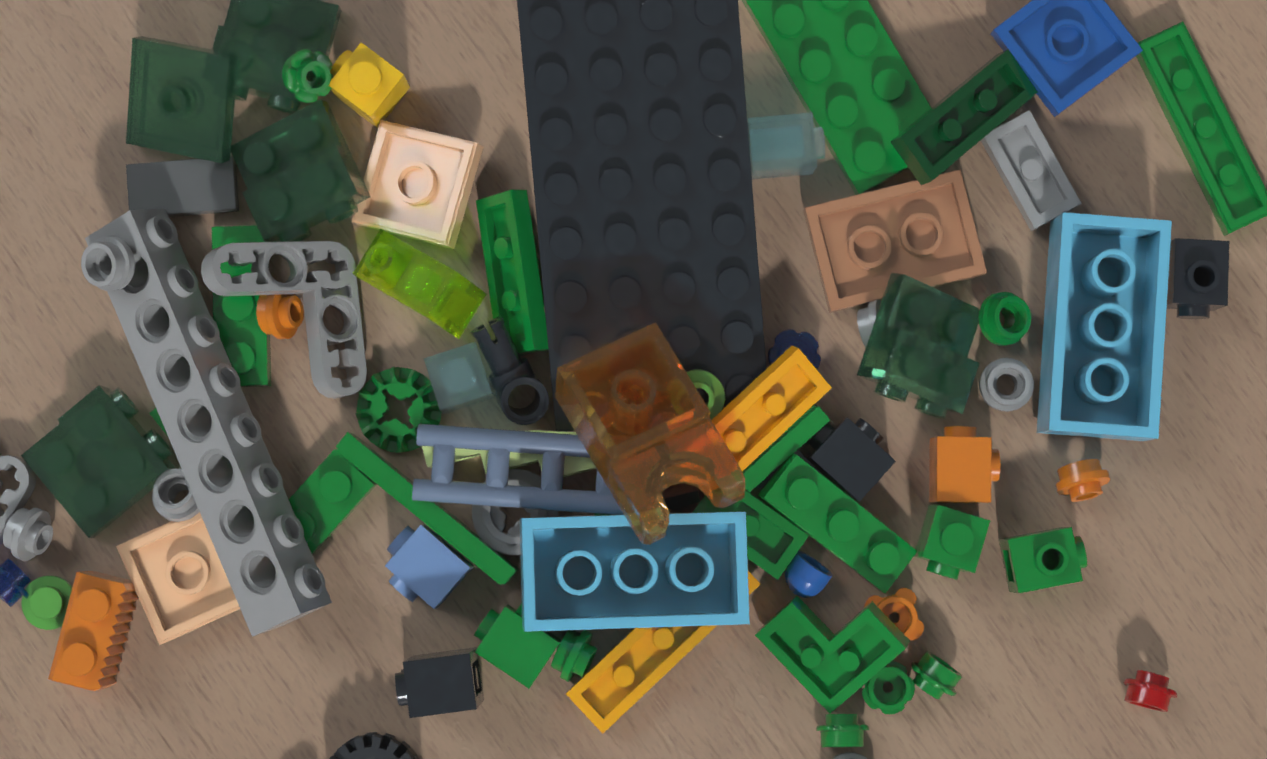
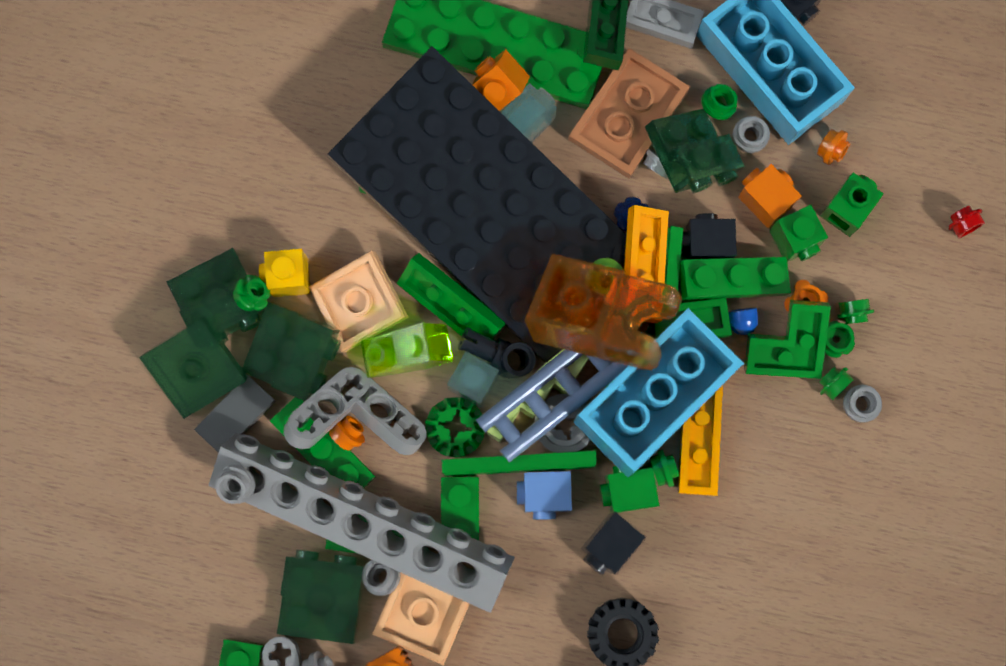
camera: 40 degrees left, 5 degrees down
(783, 81) = (500, 79): none -> orange brick

